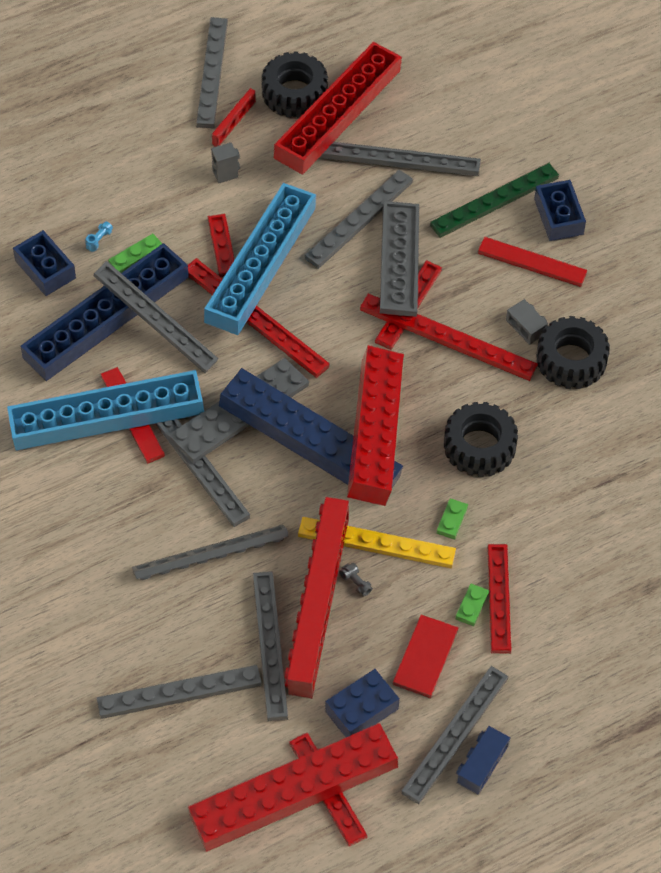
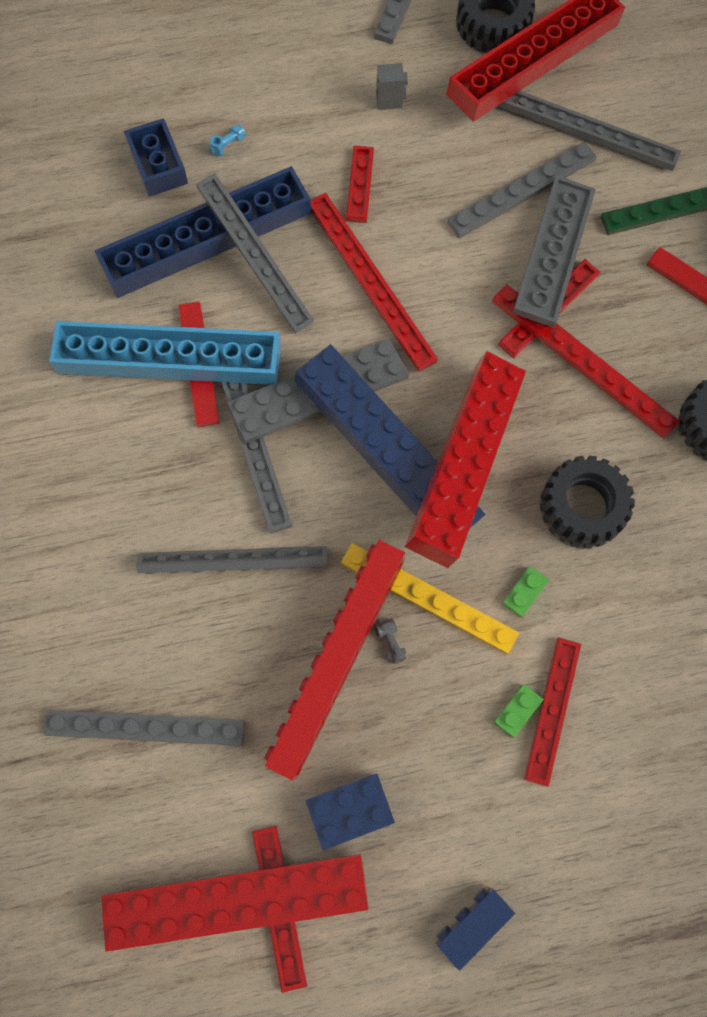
camera: 15 degrees right, 15 degrees up
(134, 253) = (260, 169): bright green plate -> none
(233, 117) = (417, 36): red tile -> none
(259, 259) = (394, 212): dark azure brick -> none
(270, 646) = (265, 701): dark grey plate -> none
(425, 656) = (444, 764): red tile -> none
(454, 735) = (449, 882): dark grey plate -> none
(526, 321) = (681, 364): dark grey brick -> none

